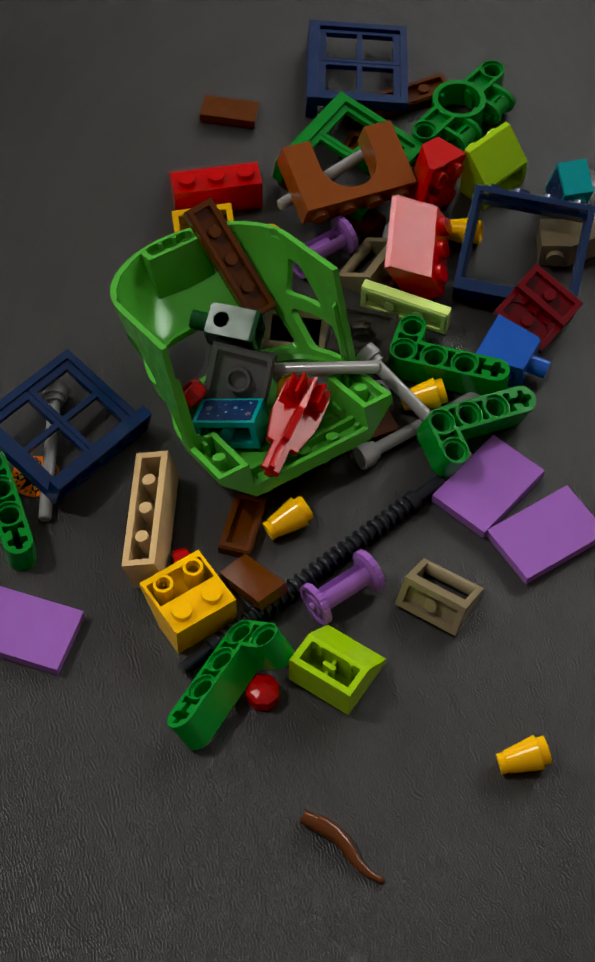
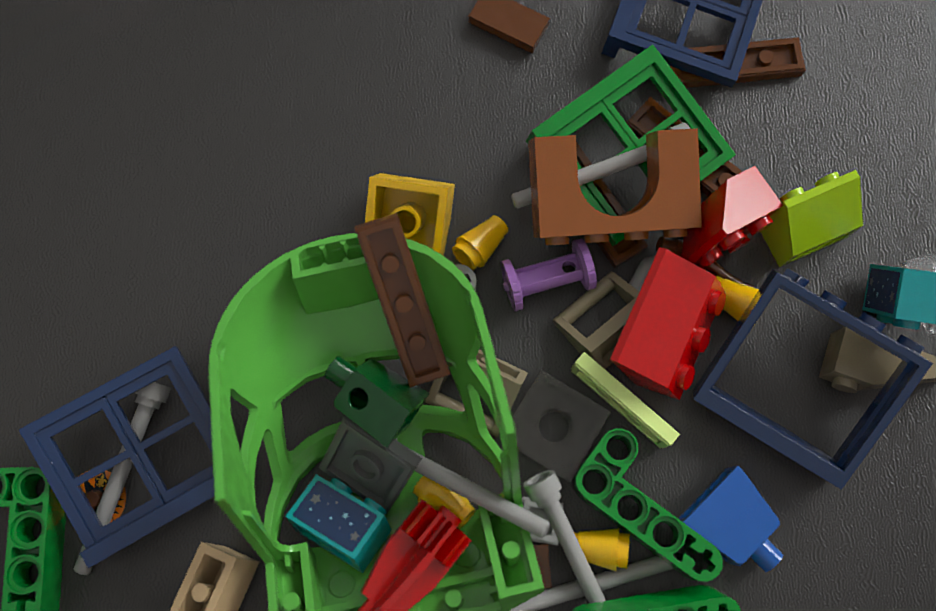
camera: 20 degrees right, 20 degrees up
(194, 392) = (302, 465): red tile -> none
(230, 183) = (449, 134): red slope -> none
(479, 92) = (835, 87): green piece -> none
(539, 305) = (796, 471): dark red slope -> none

